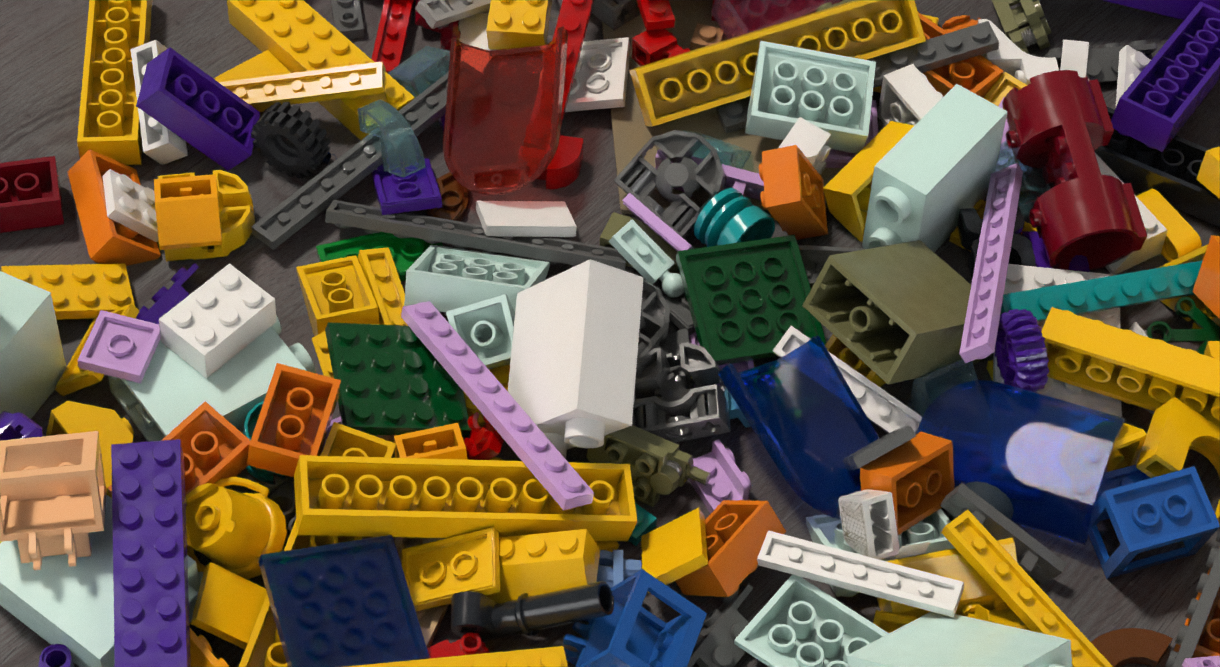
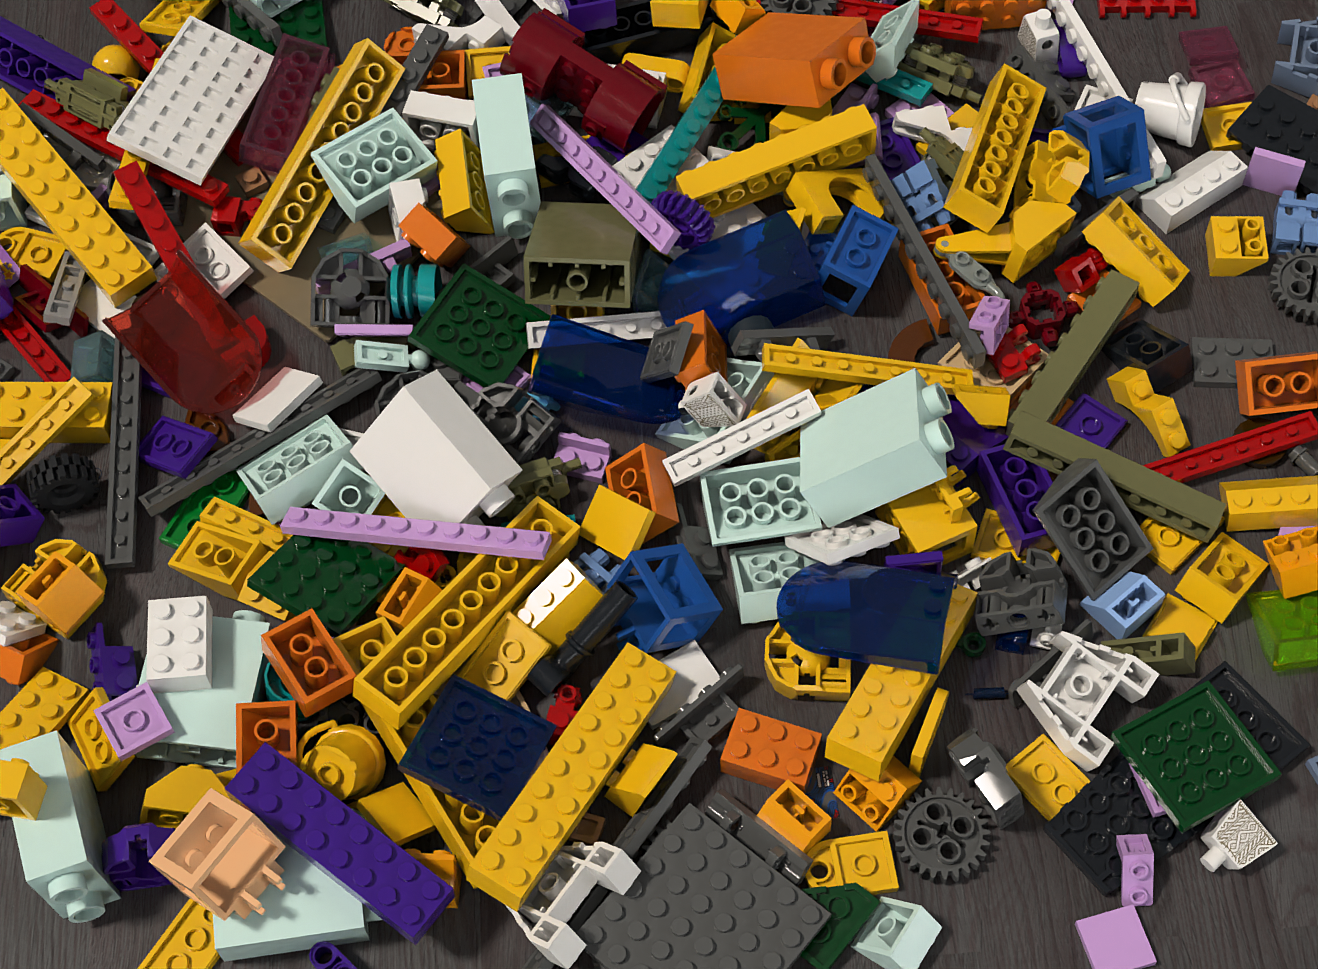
camera: 40 degrees left, 10 degrees up
(398, 142) = (143, 422): clear light blue brick -> none

